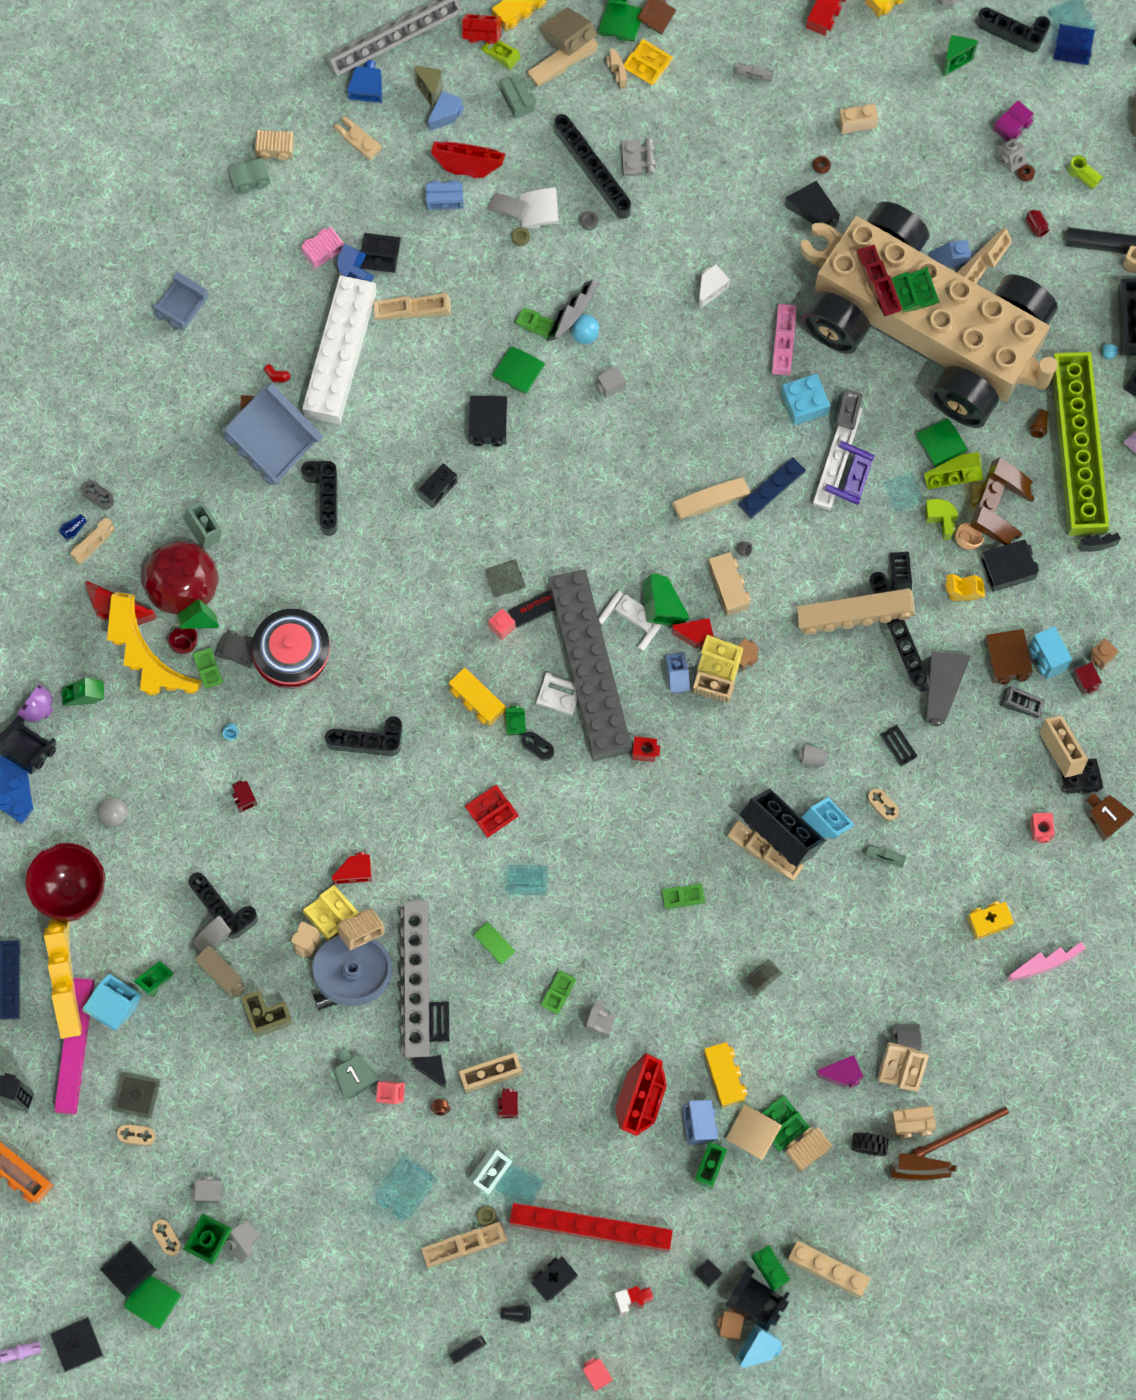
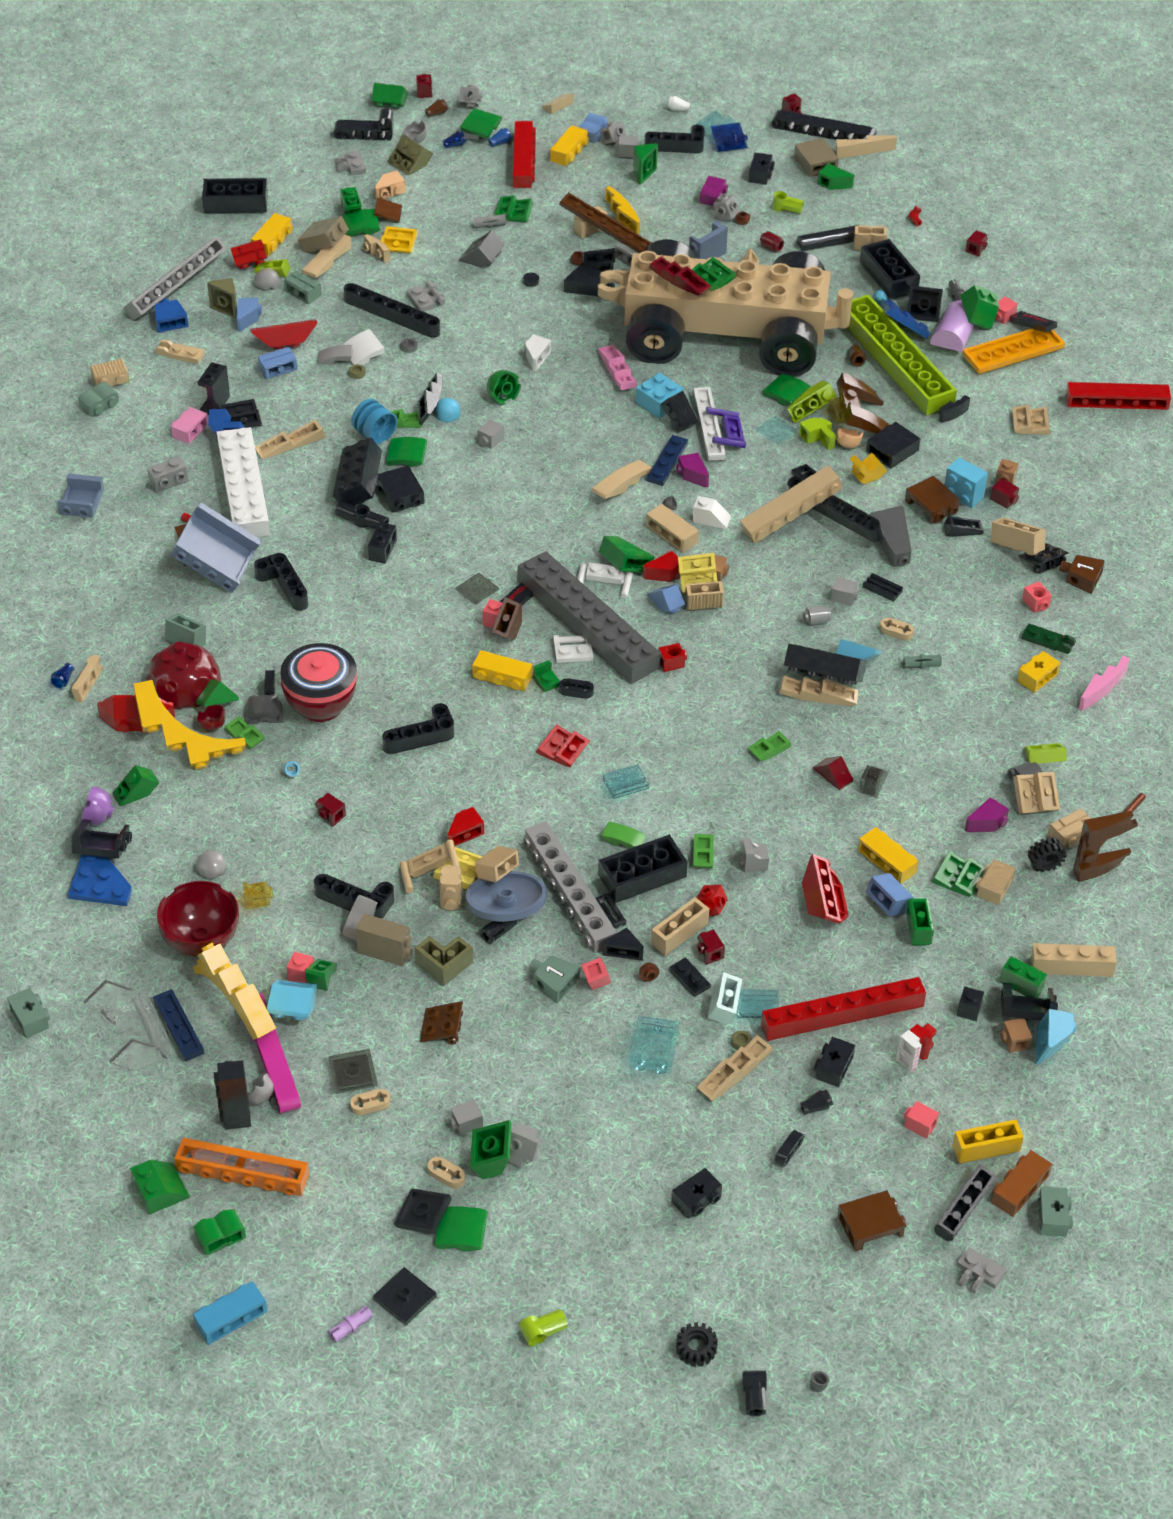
camera: 25 degrees left, 25 degrees down
(45, 1085) = (262, 1090): none -> light grey hair
(100, 491) = (74, 647): flat silver beam -> none
(136, 966) = (297, 967): none -> coral brick
(140, 872) = (257, 894): none -> clear yellow brick
(234, 1080) = (442, 1022): none -> reddish brown hinge
(254, 620) = (270, 681): none -> black beam
(272, 308) = (167, 474): none -> light grey brick
(301, 897) = (426, 862): none -> tan plate
(353, 1356) = (696, 1193): none -> black brick
(361, 214) = (217, 385): none -> black panel
(428, 433) = (360, 515): none -> black piece
(452, 387) = (357, 472): none -> black brick
(475, 1127) = (689, 977): none -> black hinge
(487, 69) = (267, 279): none -> light grey hair
(490, 992) = (642, 868): none -> black brick
(500, 322) = (374, 420): none -> dark azure wheel
(506, 643) = (508, 619): none -> reddish brown slope
(533, 1055) = (713, 897): none -> red brick
(651, 323) = (504, 383): none -> green cylinder
(725, 115) = (483, 250): none -> dark grey slope
(728, 953) = (834, 771): none -> dark red slope
(753, 1132) = (941, 884): tan slope -> none
(758, 175) = (531, 279): none -> black tile
(777, 581) = (710, 513): none -> white slope
(788, 513) = (693, 469): none -> magenta slope
(789, 63) = (514, 209): none -> green slope
(811, 434) = (679, 411): none -> black brick
(834, 184) = (599, 259): none -> black slope
(847, 409) = (697, 390): dark grey panel -> none
(856, 738) = (844, 591): none -> light grey brick
(874, 185) = (623, 254): none -> light grey slope
(875, 147) = (604, 223): none -> reddish brown tile
(901, 117) = (624, 212): none -> yellow slope
(943, 1018) = (1046, 753): none -> lime slope
(954, 18) = (626, 145): none -> light grey brick
(963, 210) = (712, 244): none -> sand blue panel
(1025, 880) = (1048, 638): none -> dark green hinge
(1075, 112) = (761, 168): none -> black brick
(1113, 395) = (904, 317): none -> blue plate

